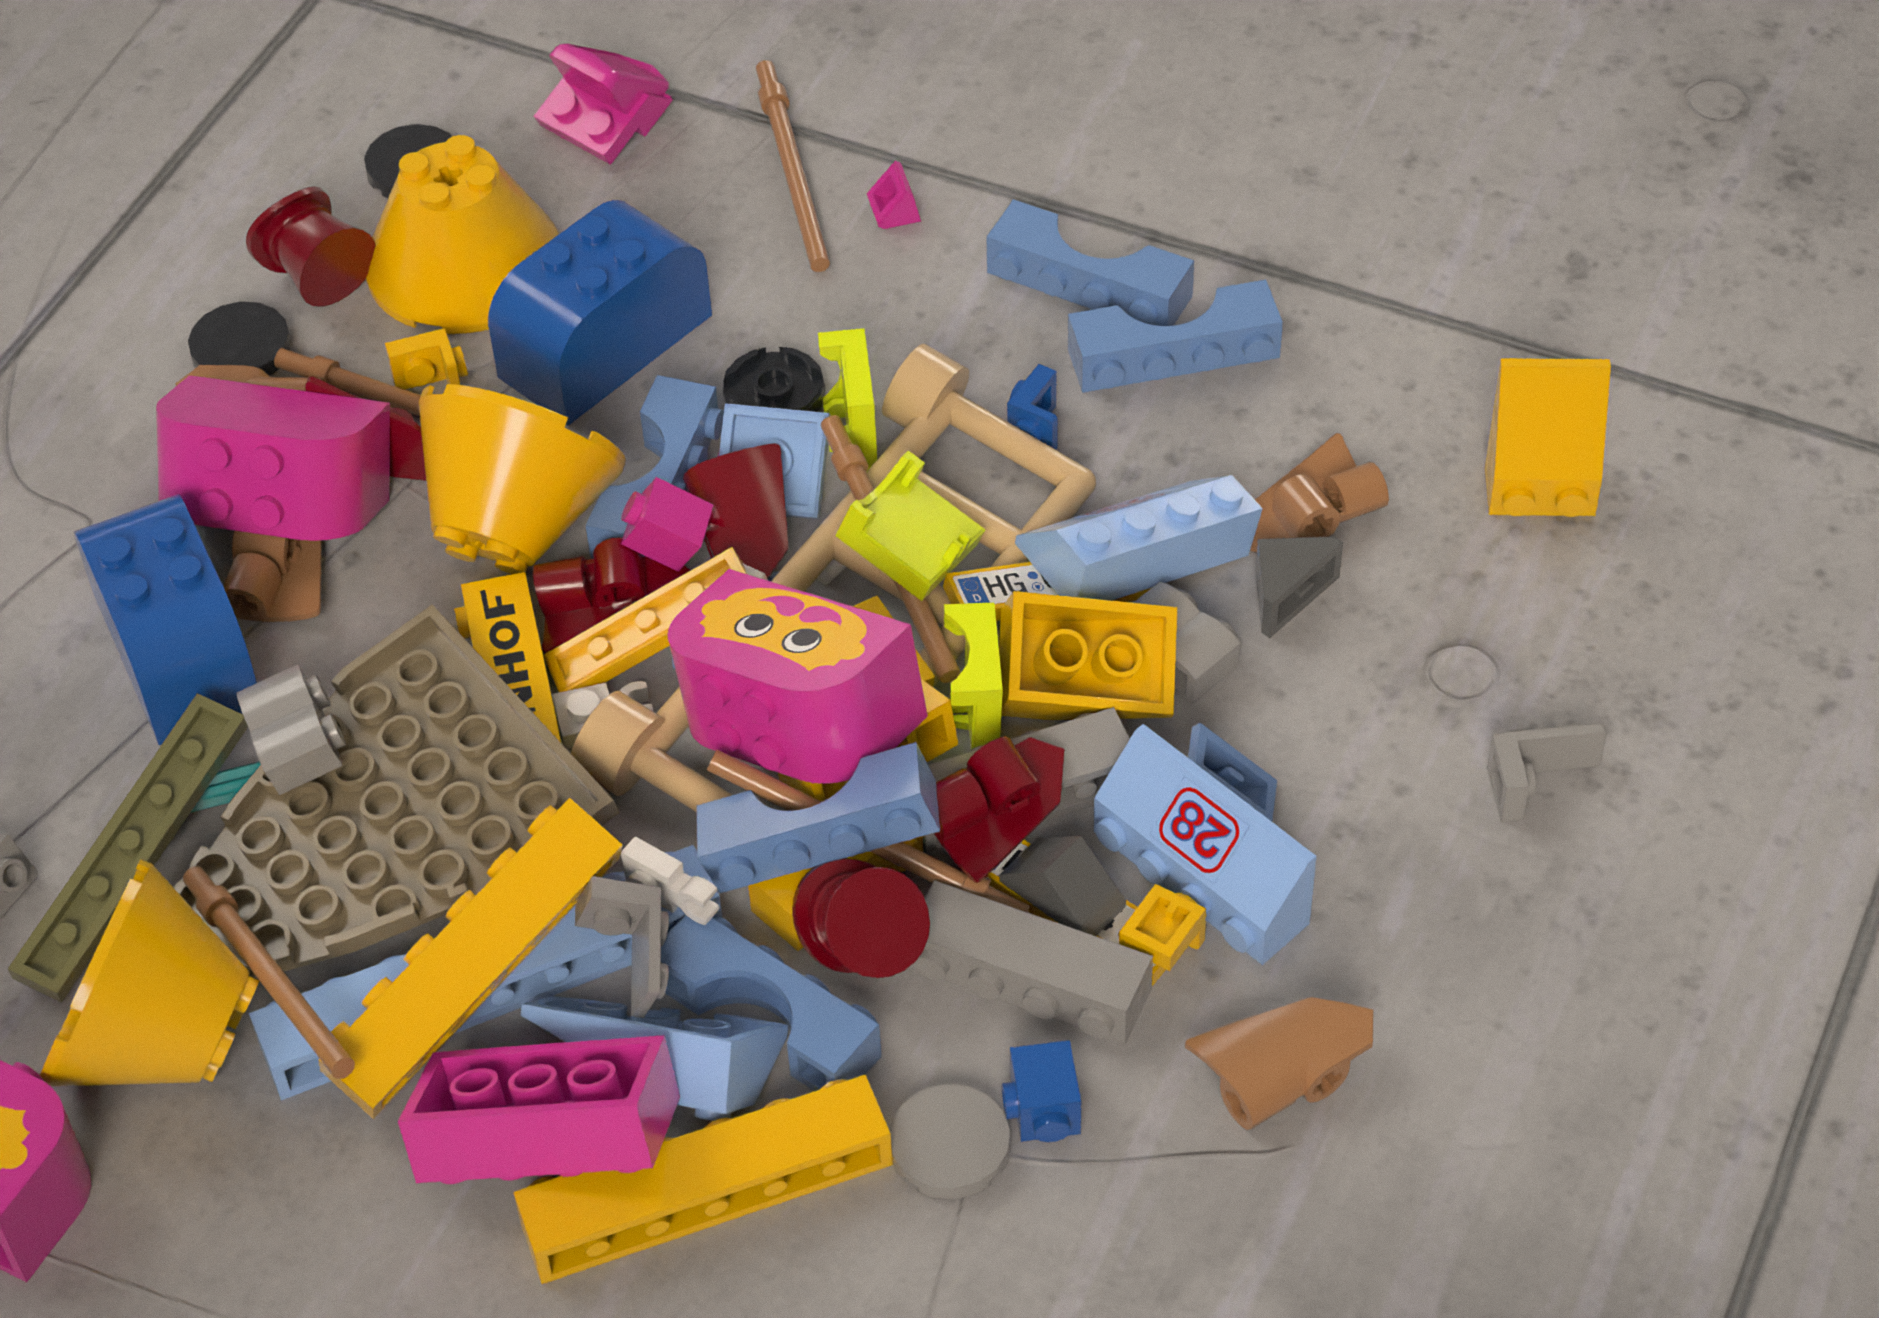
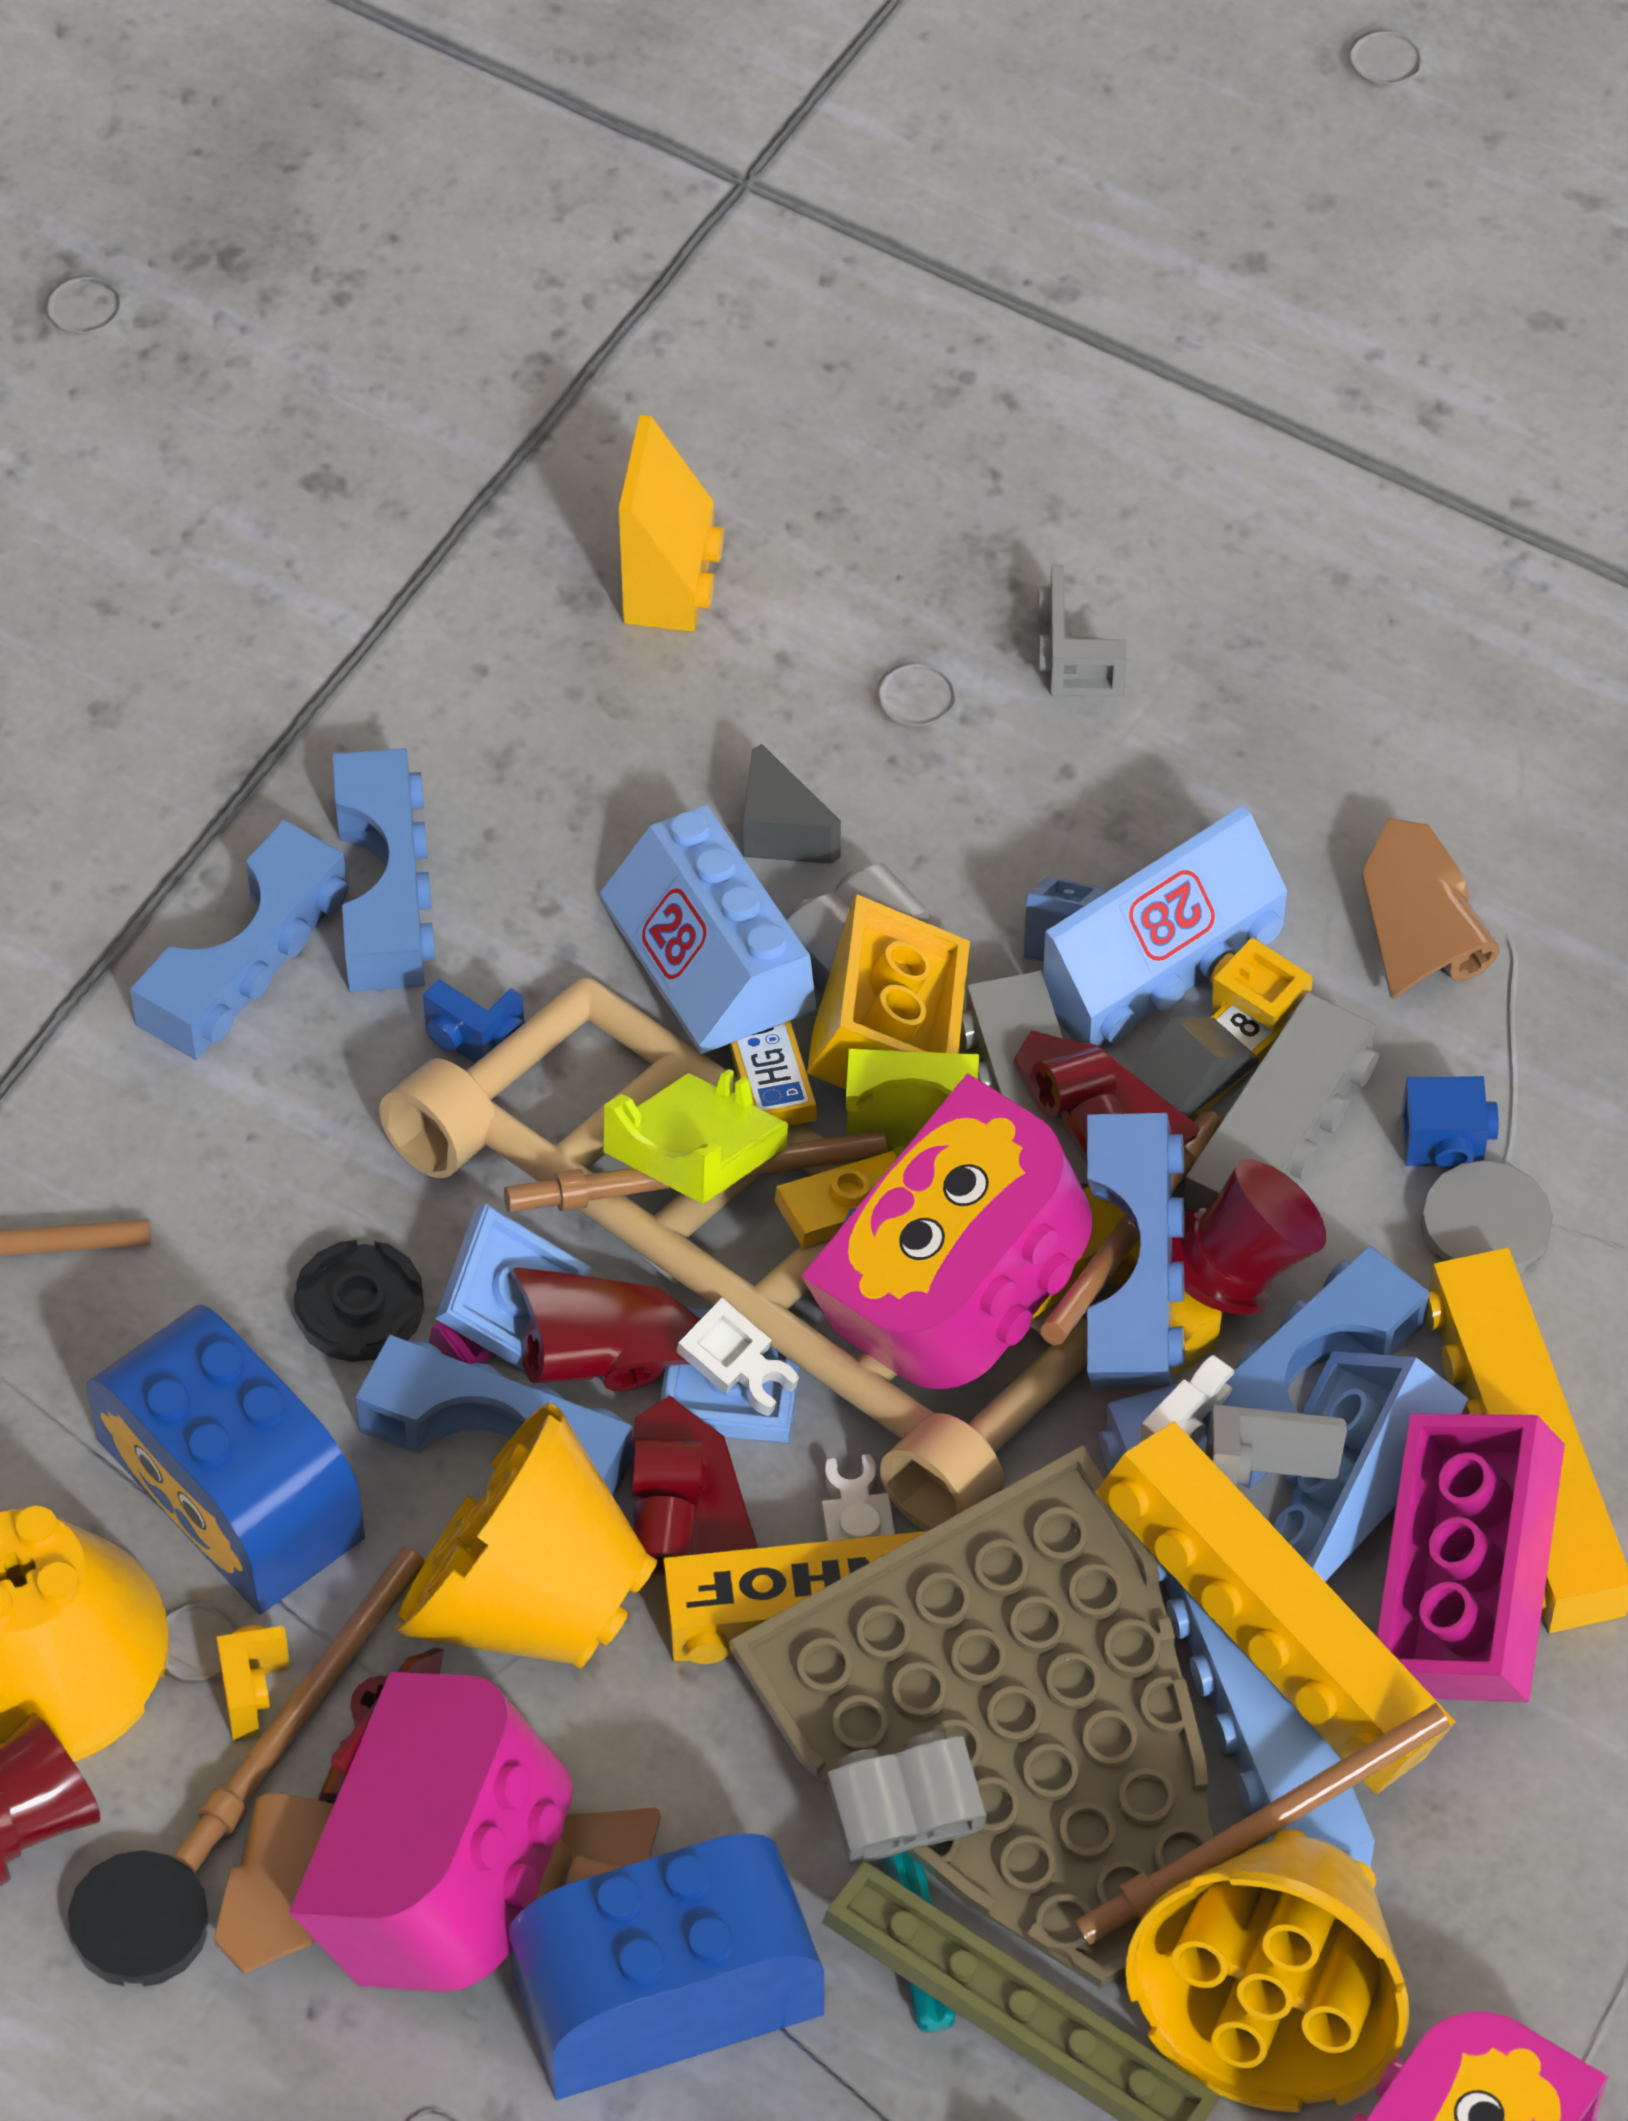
camera: 85 degrees left, 5 degrees up
(634, 631) = (759, 1425): yellow tile -> none
(665, 523) = (632, 1388): dark pink brick -> none
(853, 392) = (441, 1181): neon yellow piece -> none
(893, 199) = (53, 1137): dark pink slope -> none
(1320, 495) = (650, 767): medium nougat panel -> none

